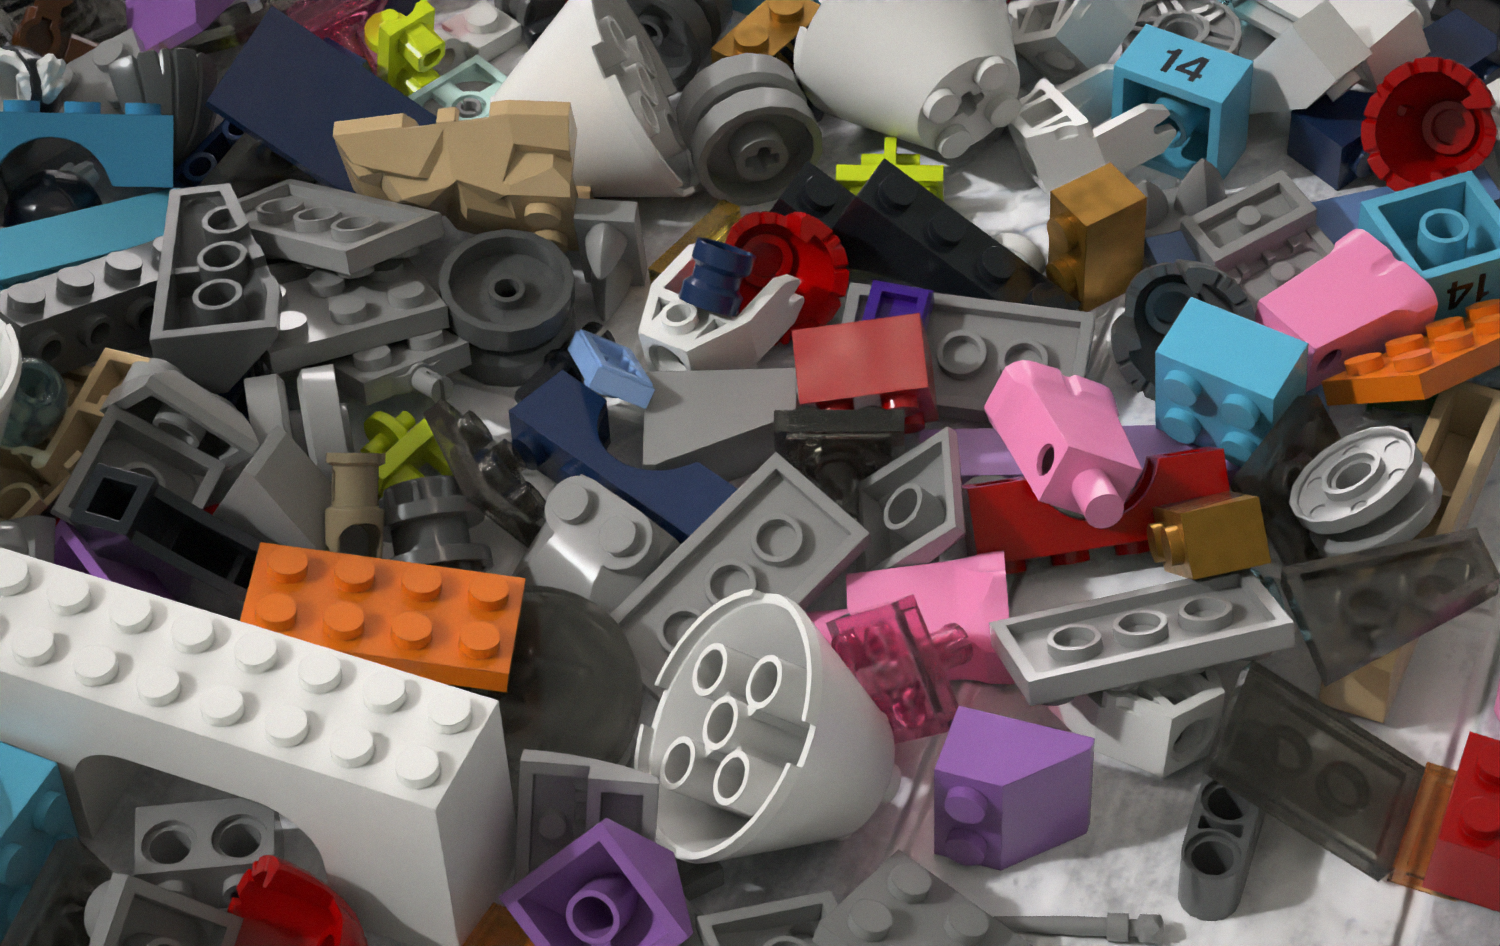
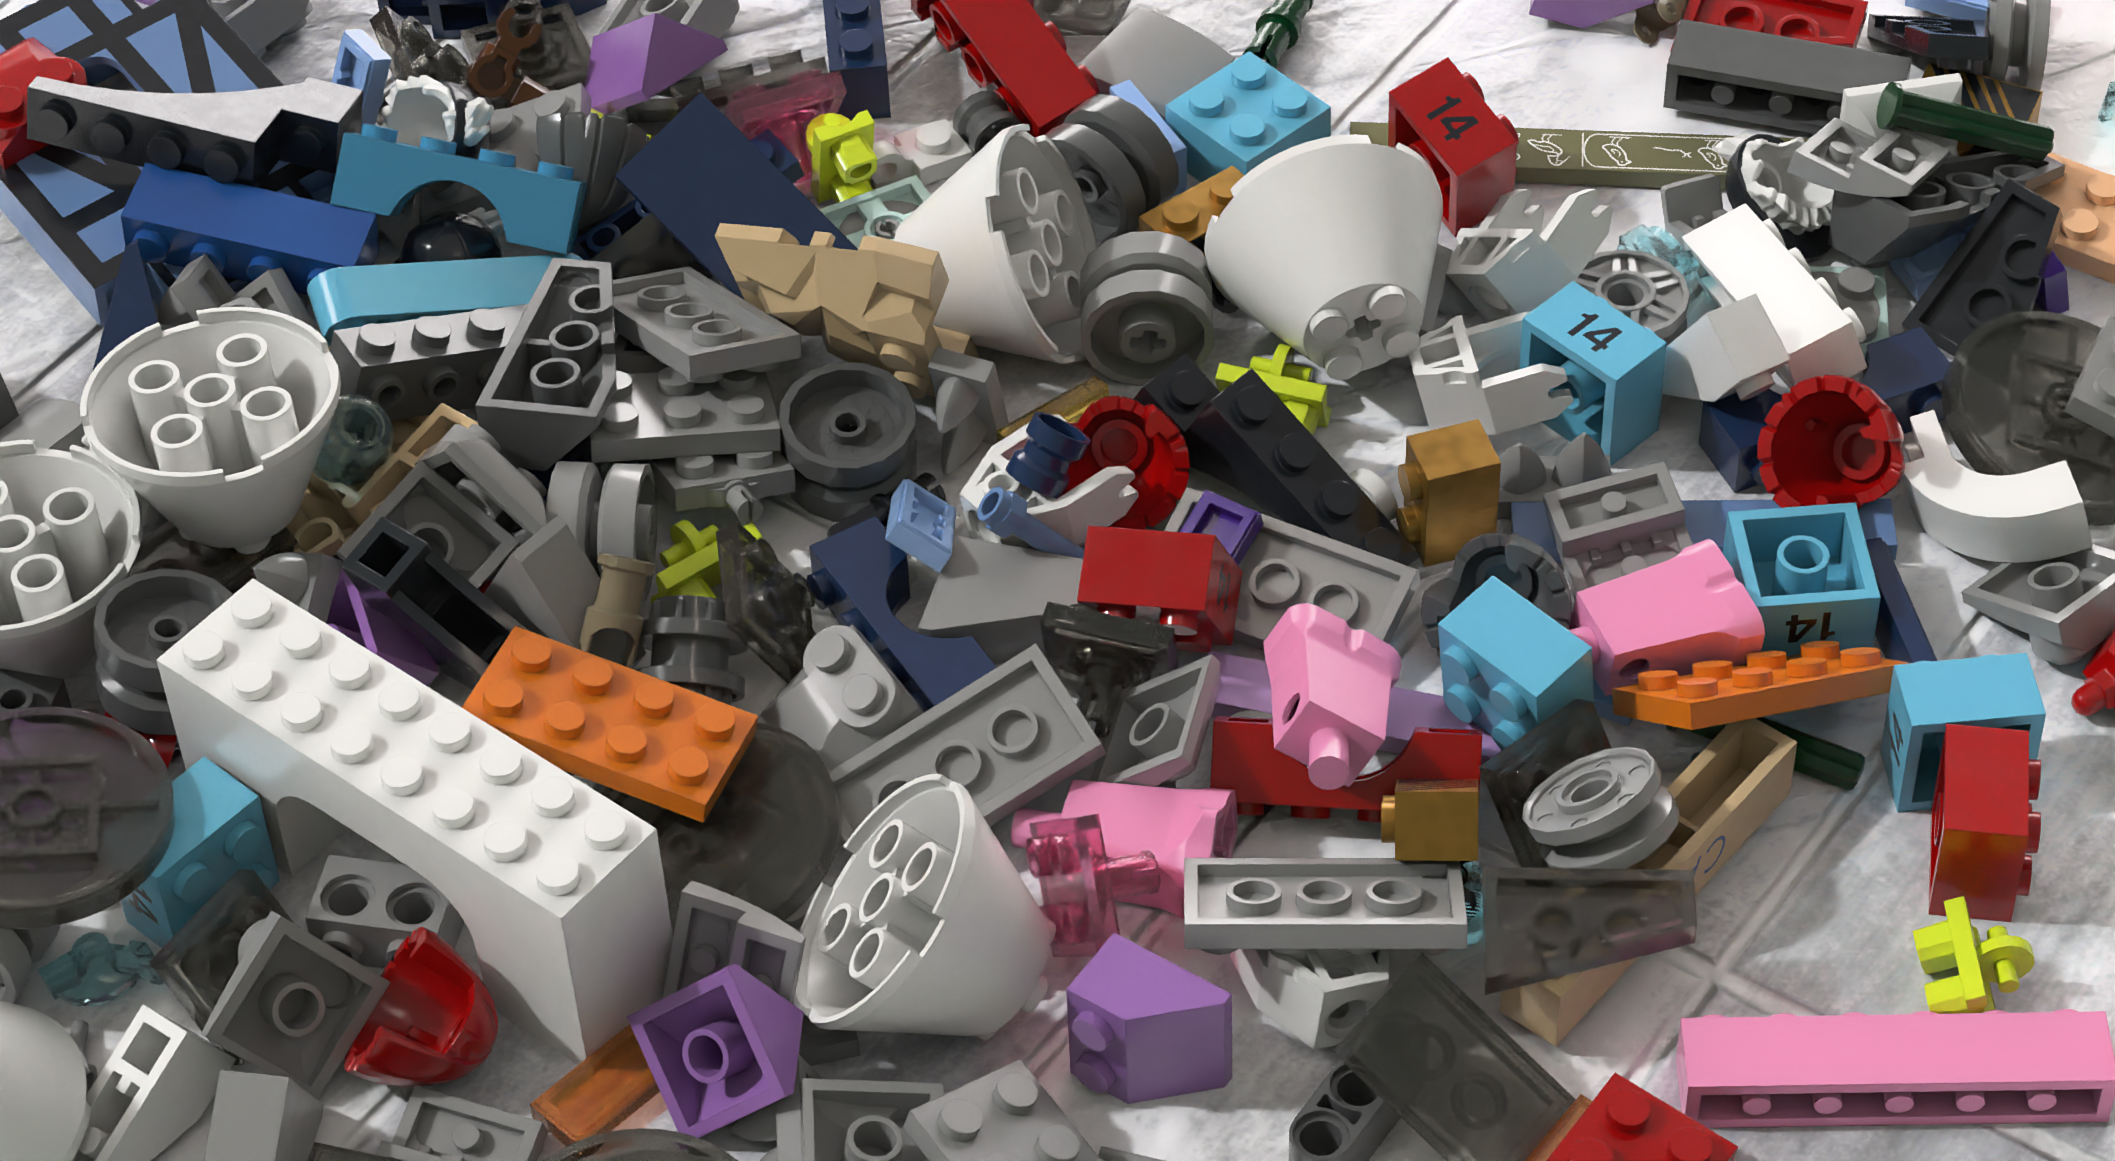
camera: 15 degrees right, 0 degrees up
(698, 339) = (1007, 514): none -> medium blue bar

